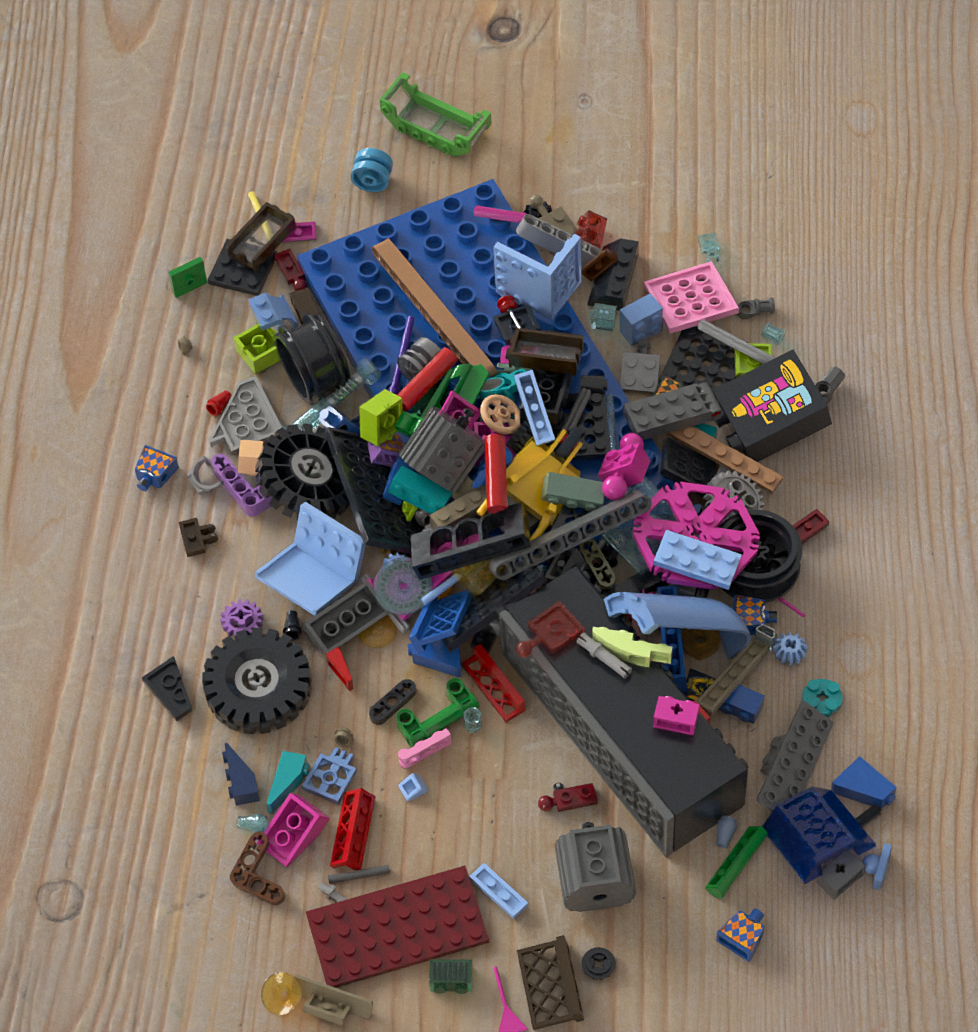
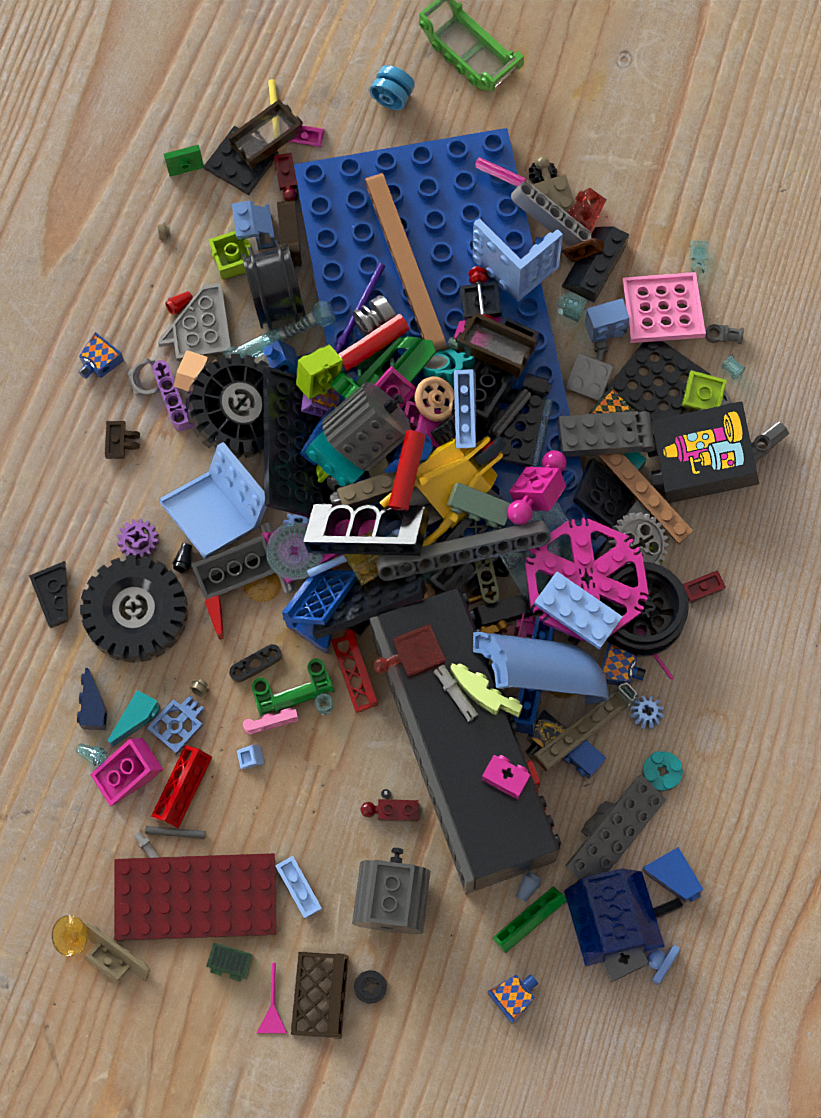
camera: 15 degrees right, 15 degrees up
(250, 878) = (74, 808): reddish brown beam -> none
(734, 342) = (693, 373): light grey axle -> none

